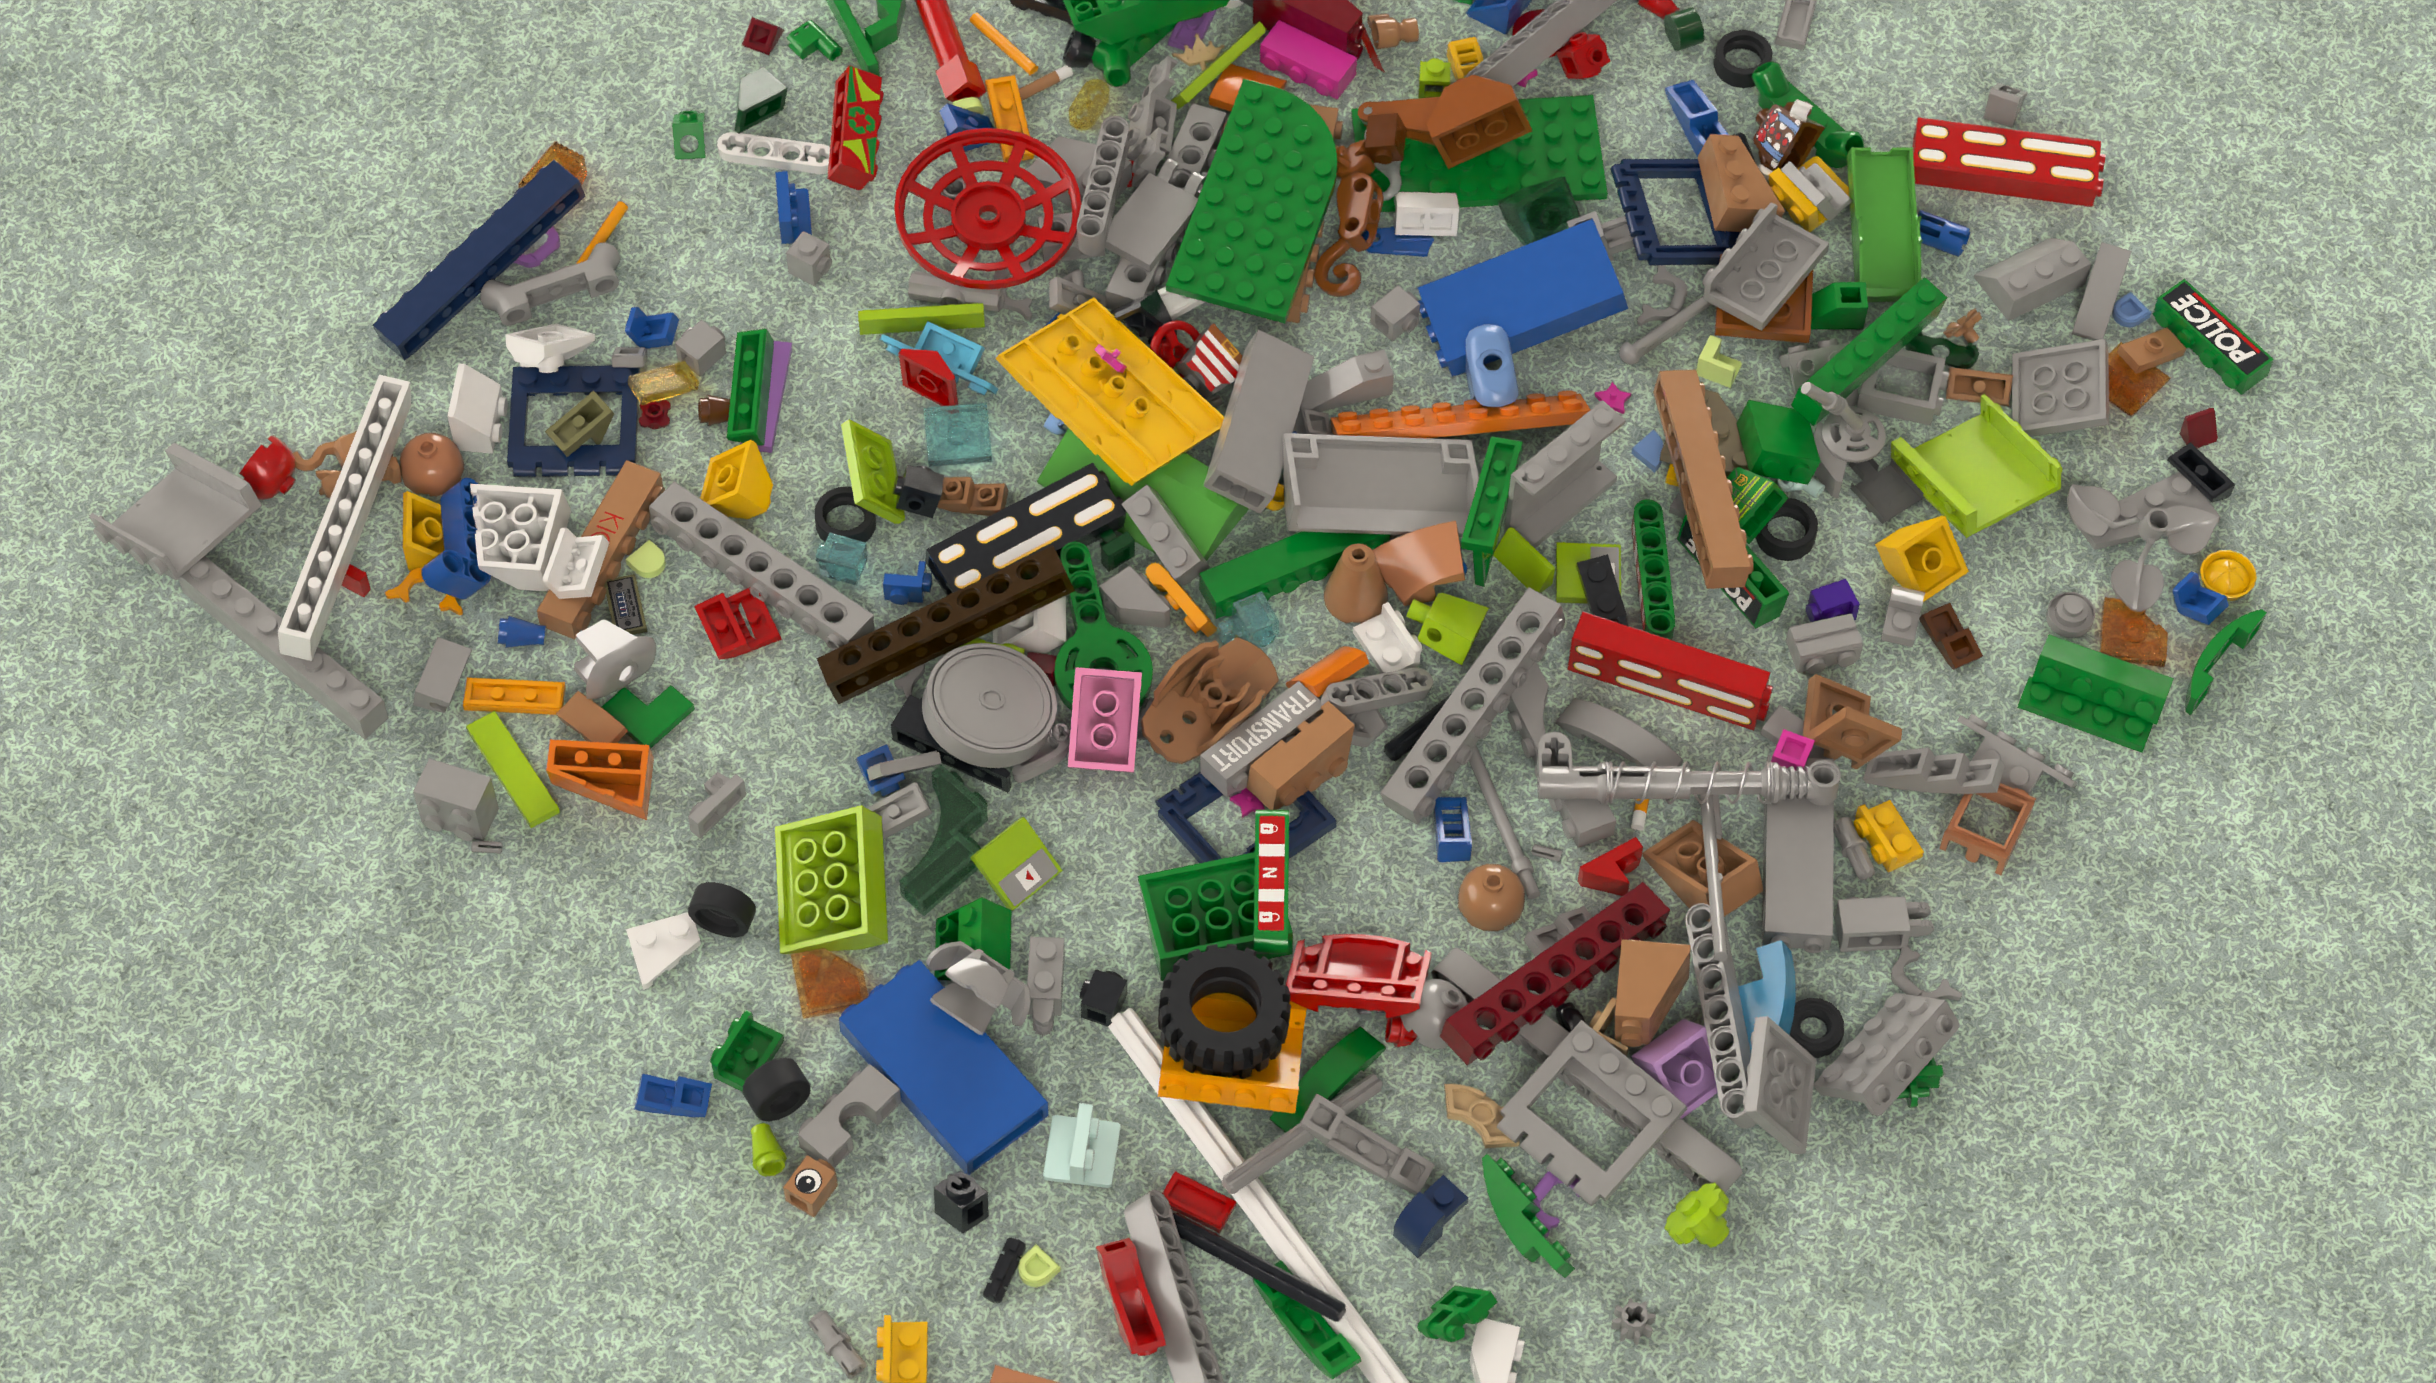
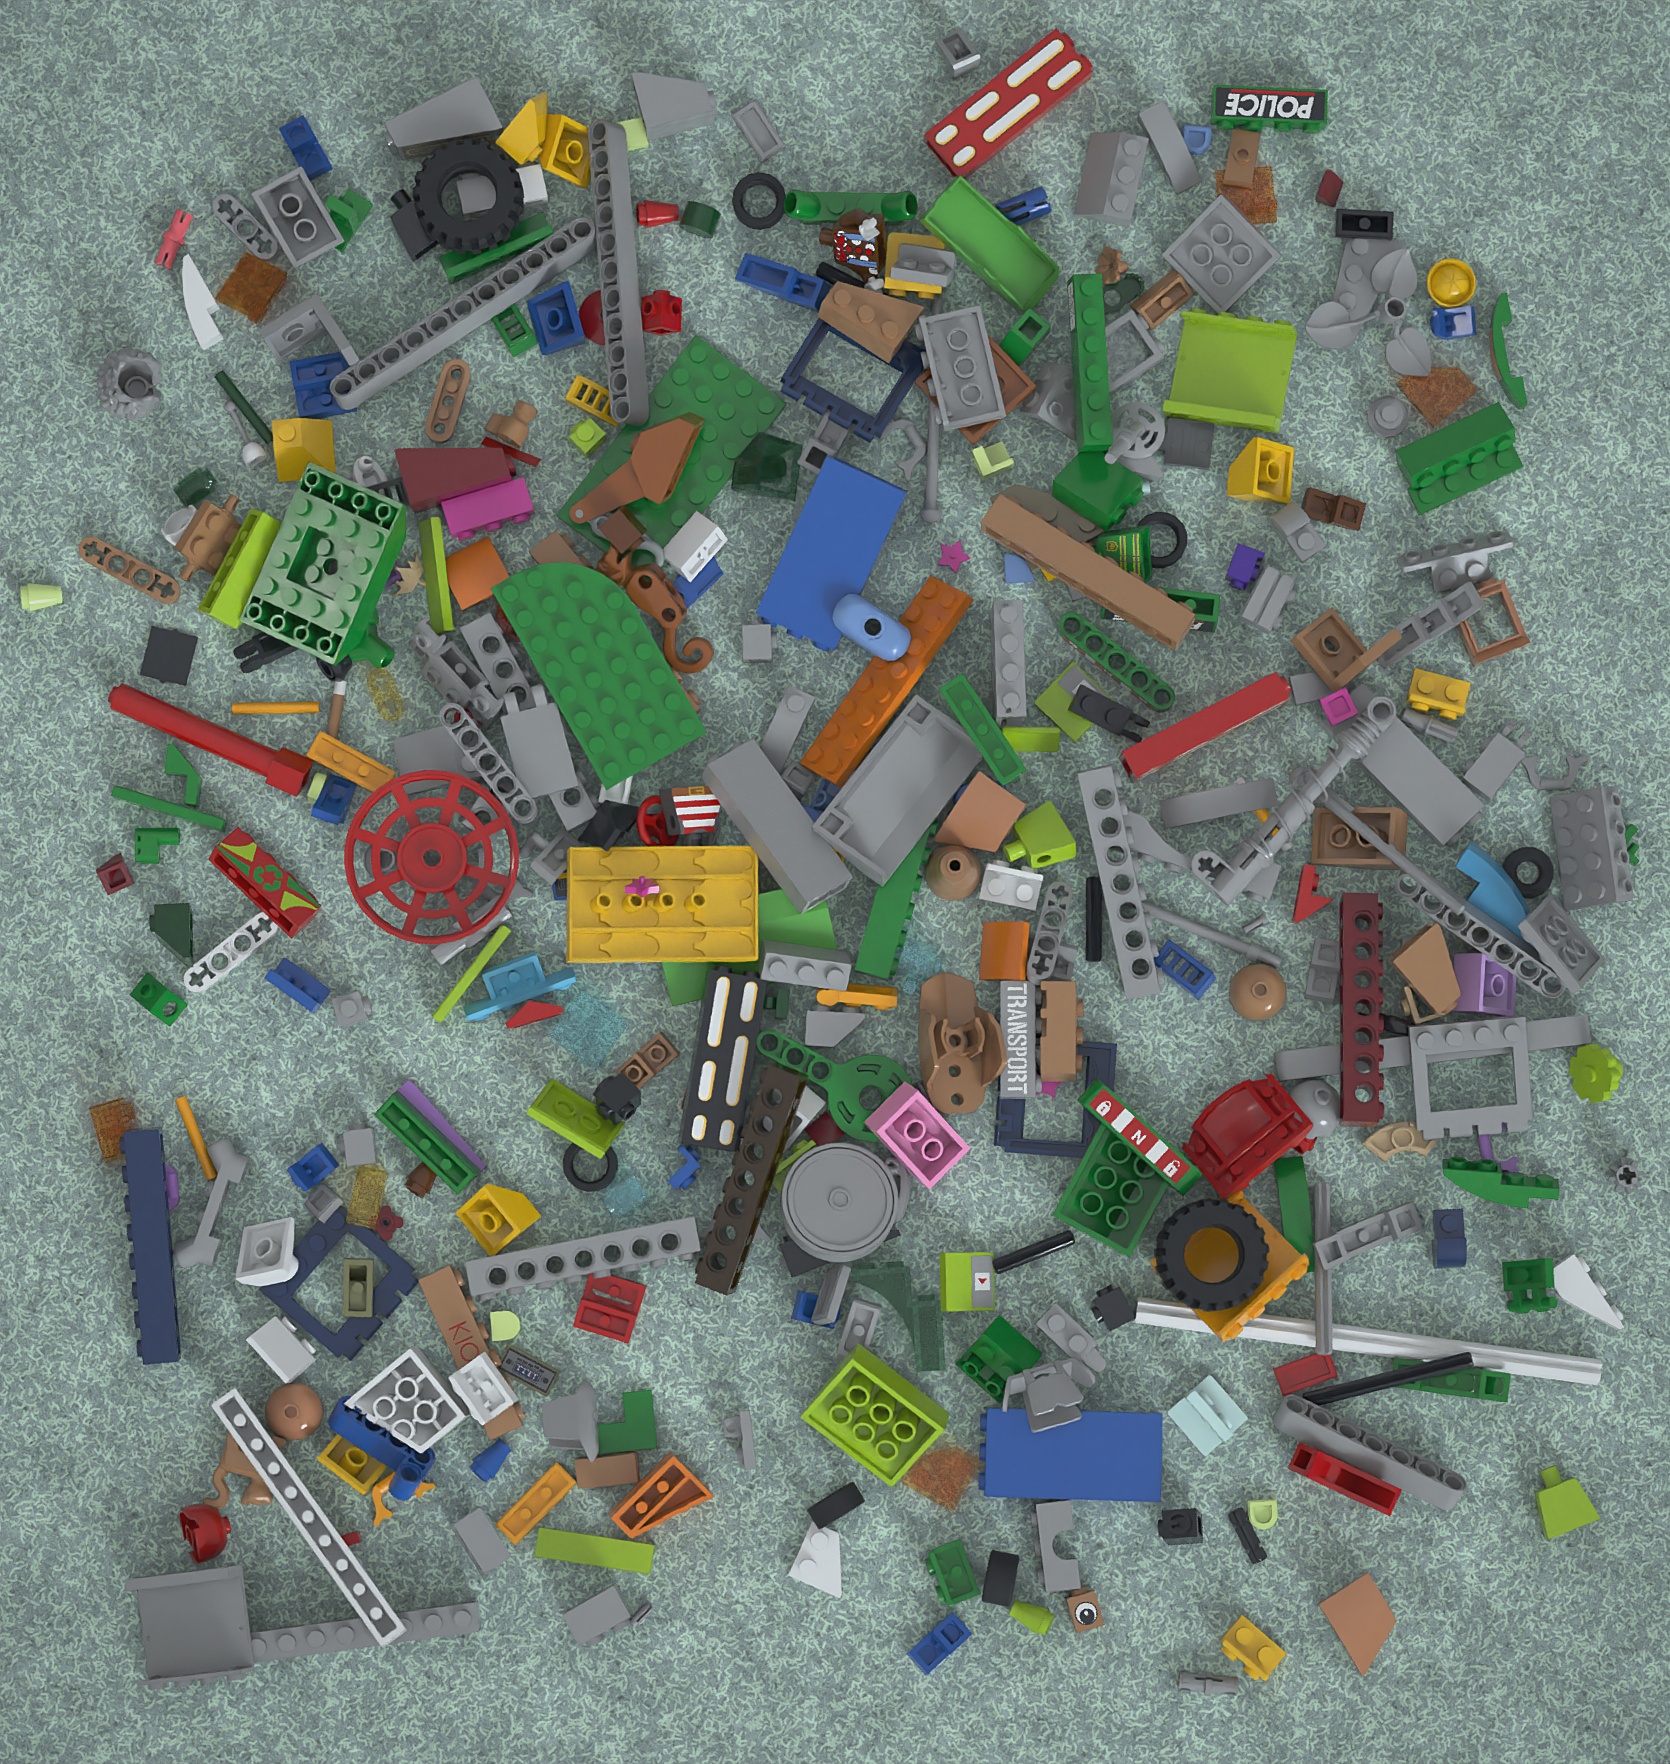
camera: 50 degrees left, 25 degrees up
(1093, 902) = (1033, 1252): none -> black axle

